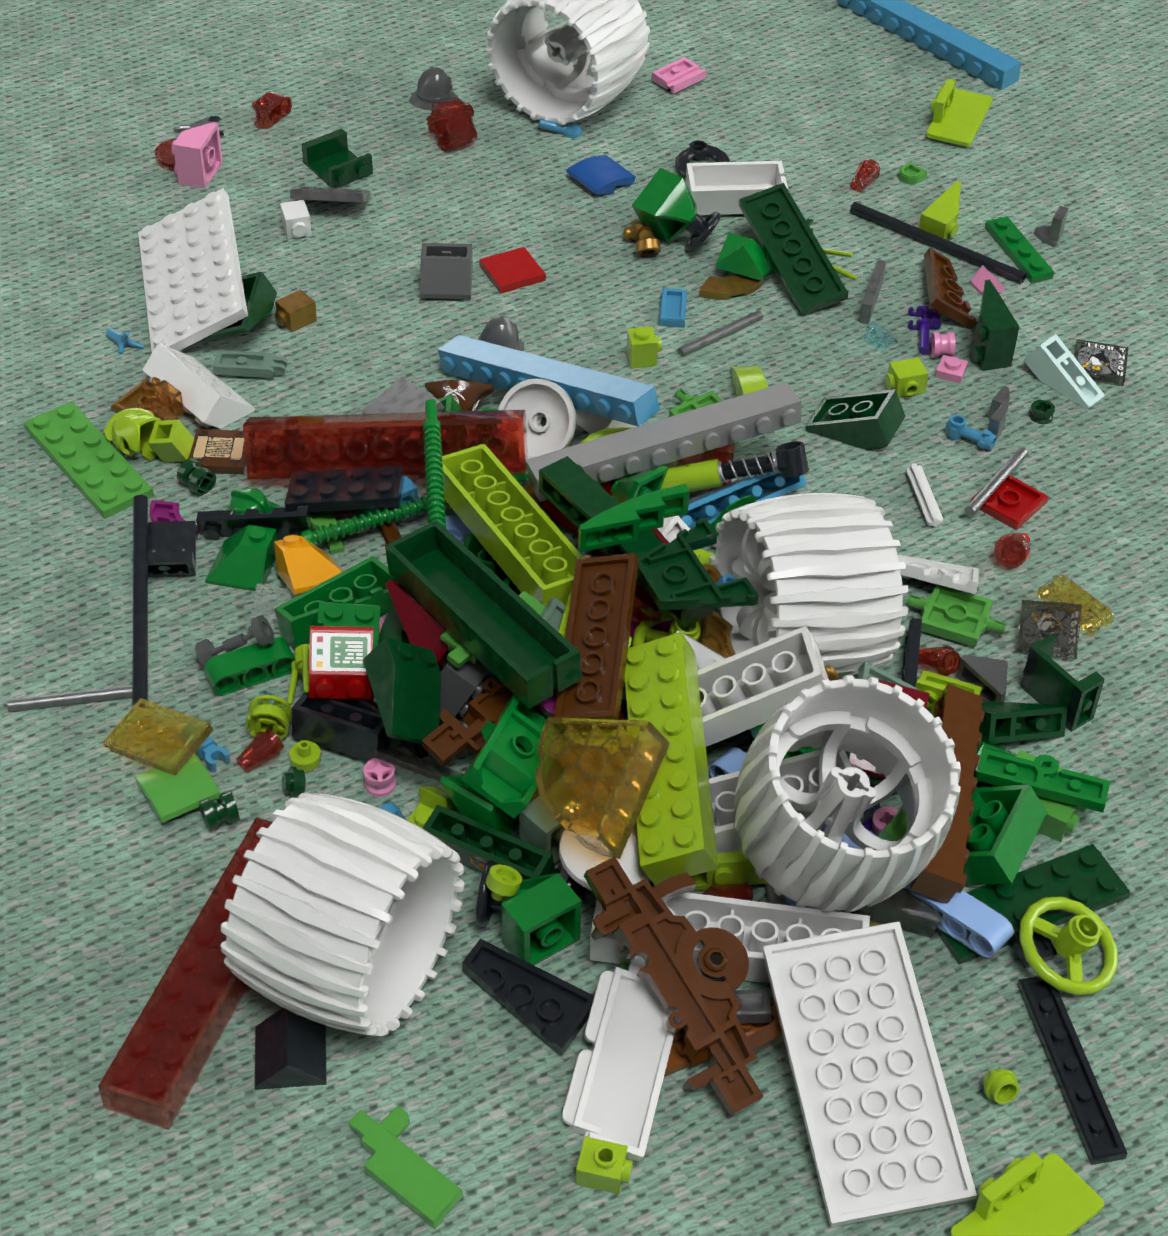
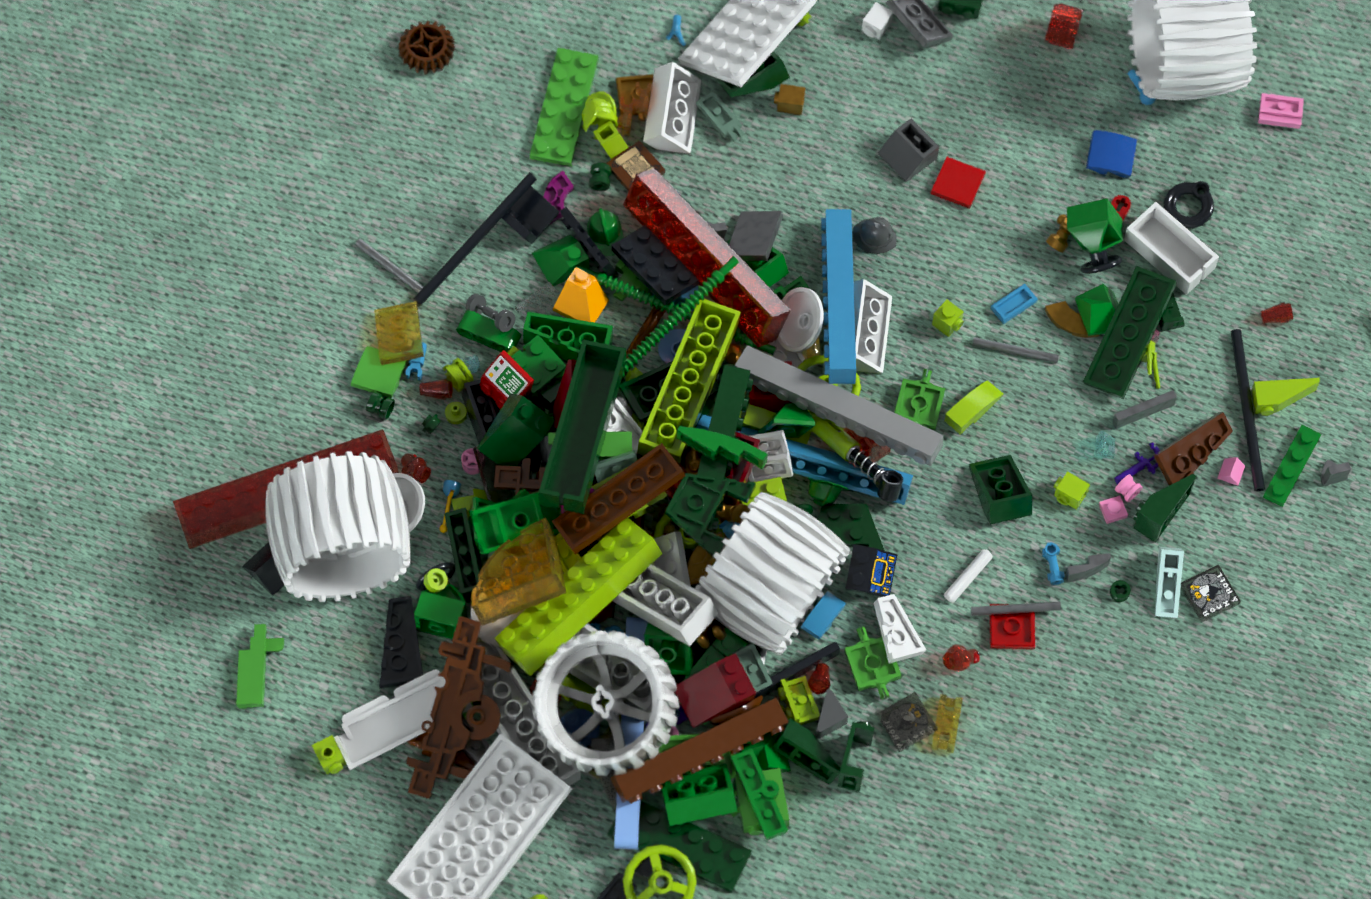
camera: 50 degrees right, 20 degrees up
(466, 393) = (797, 254): reddish brown hat -> none
(911, 173) = (1315, 340): bright green tile -> none

